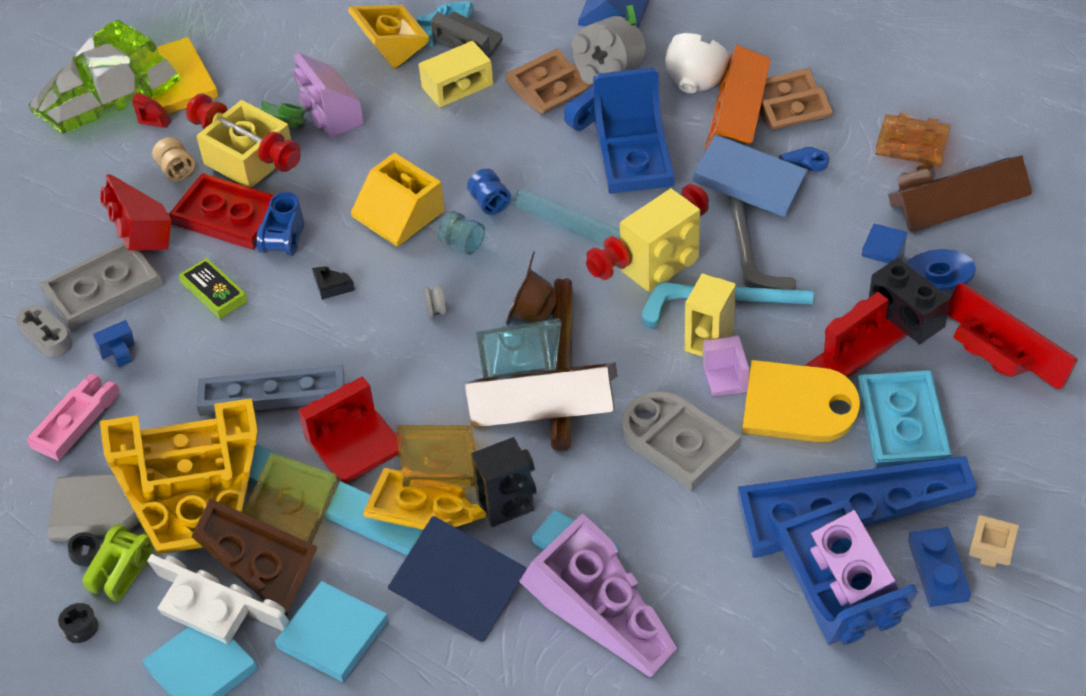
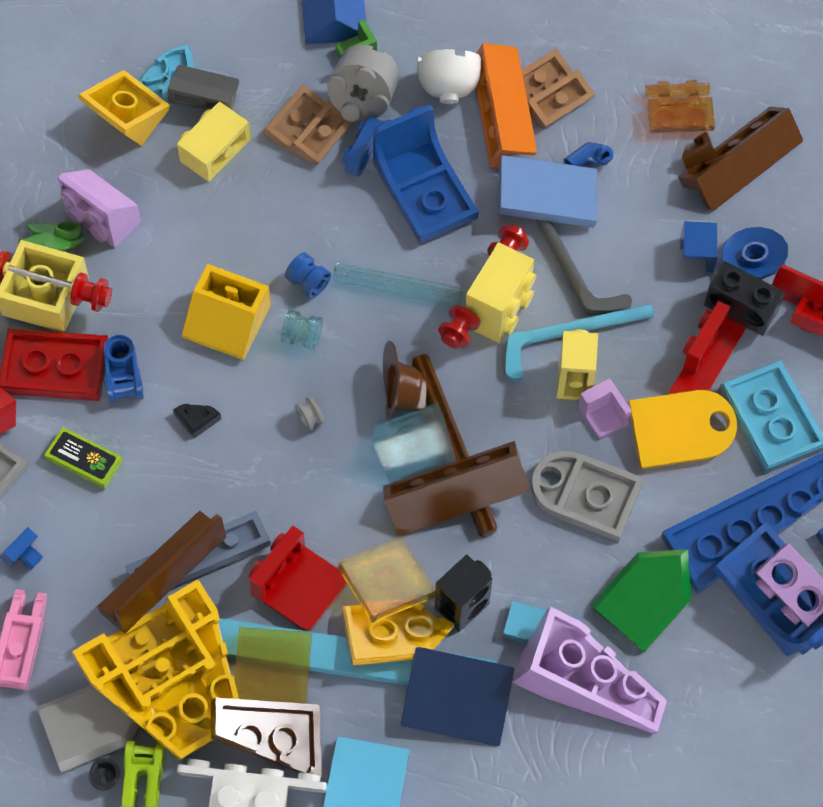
camera: 25 degrees left, 15 degrees up
(230, 384) = (162, 571): none -> reddish brown panel
(697, 542) = (647, 595): none -> green tile

